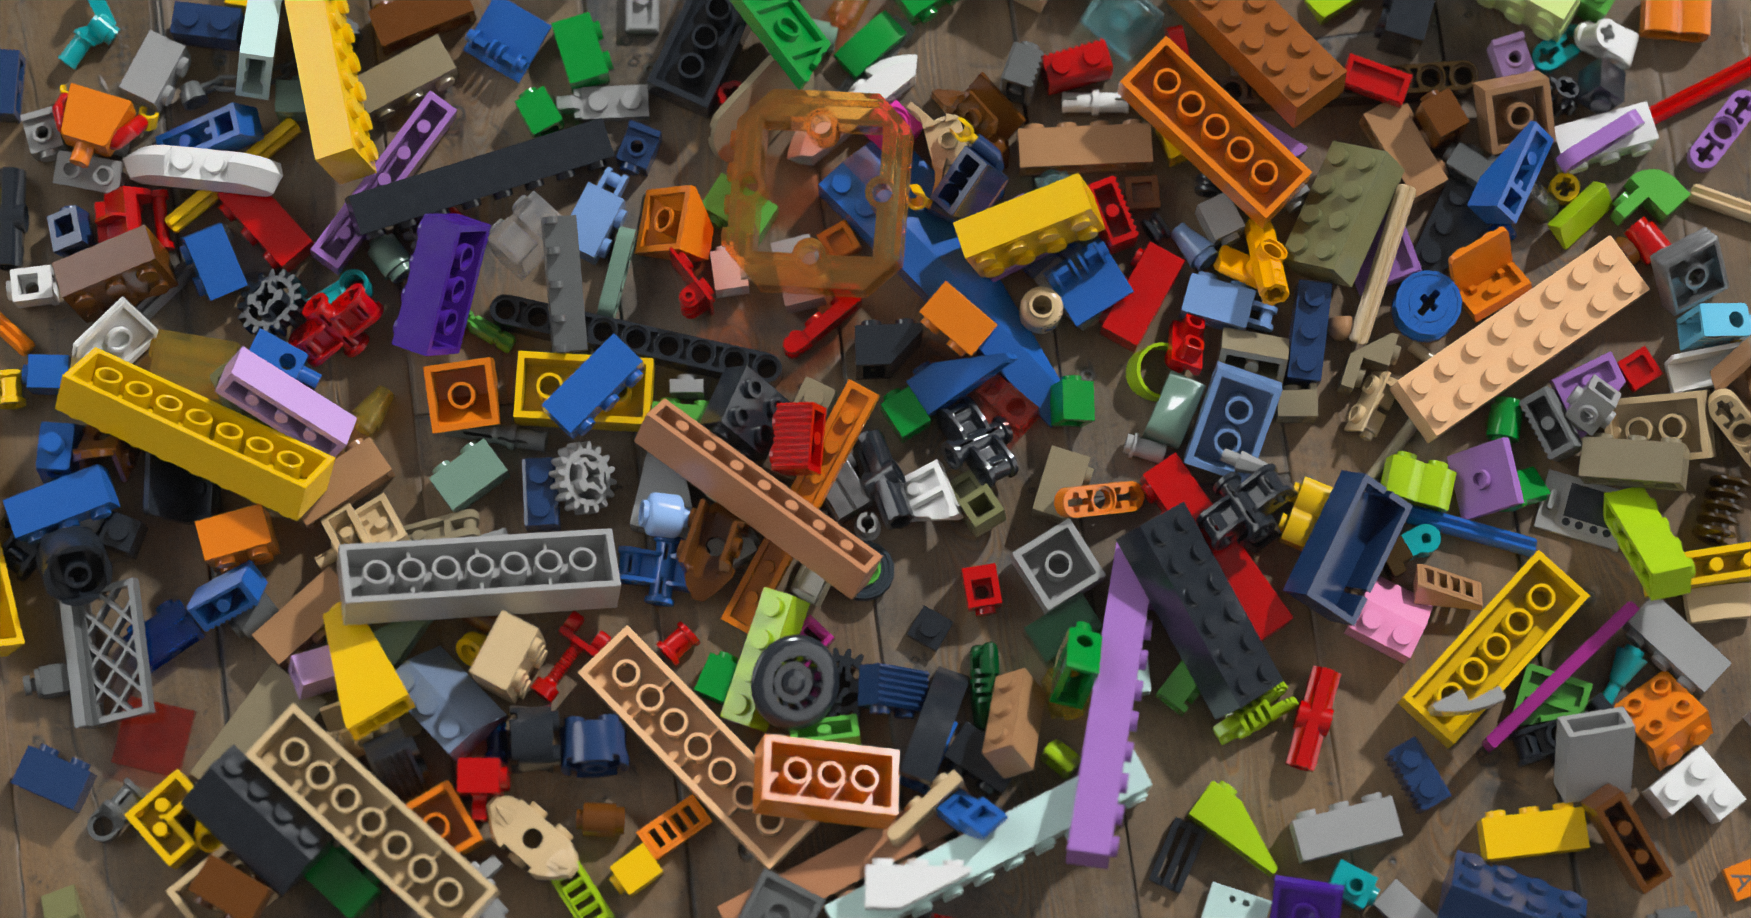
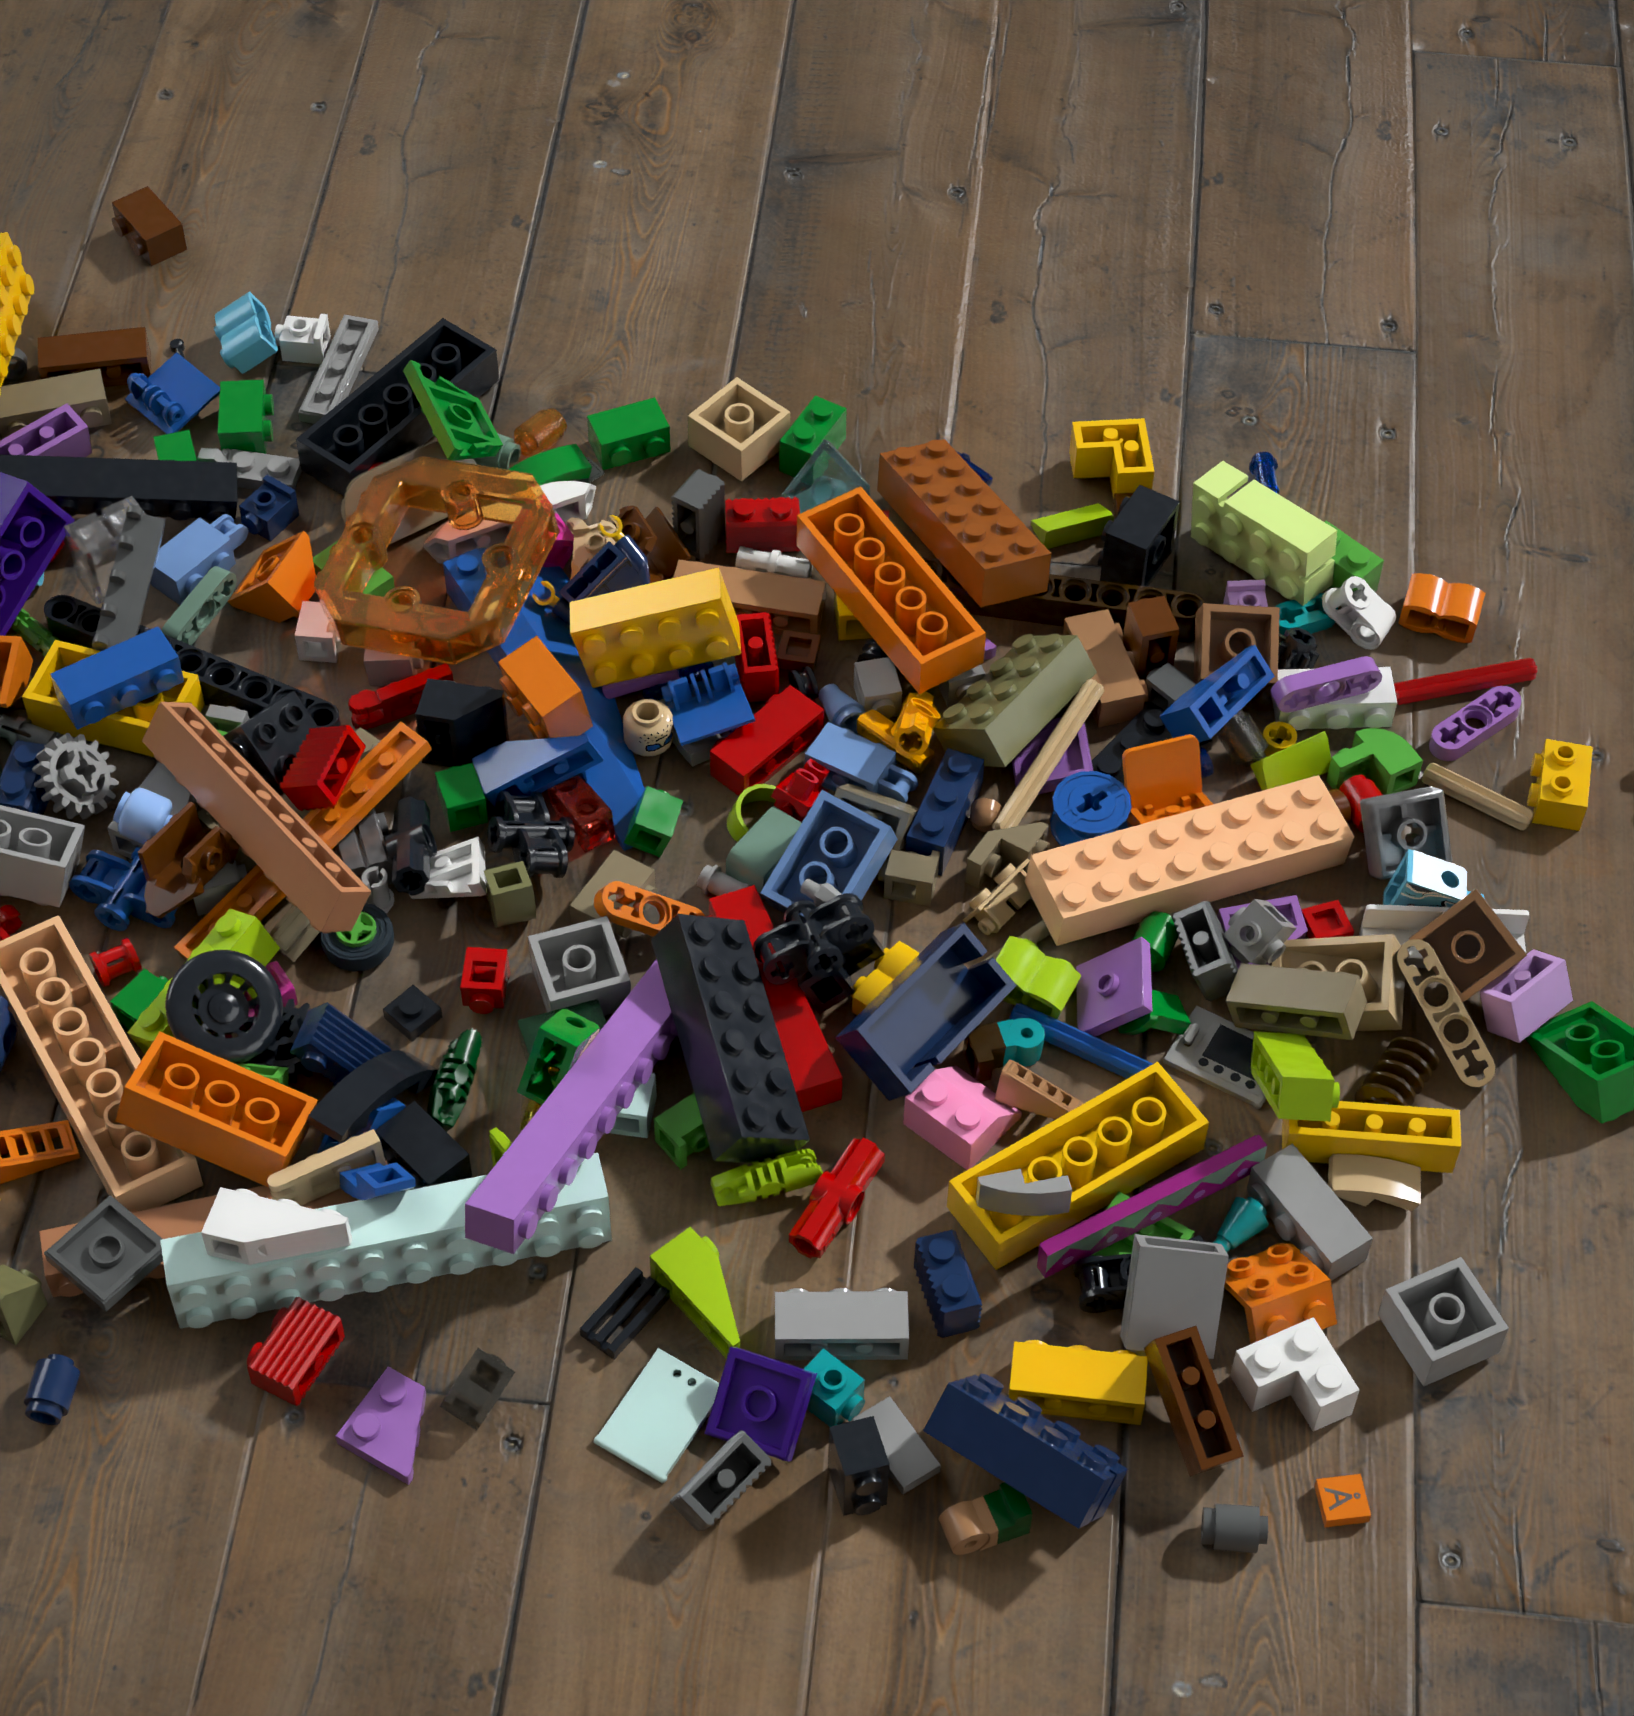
camera: 15 degrees right, 25 degrees down
(698, 294) = (267, 631): red hinge -> none
(1014, 723) = (466, 1105): medium nougat brick -> none
(1376, 80) = (1086, 588): red tile -> none
(1601, 86) = (1341, 642): black brick -> none

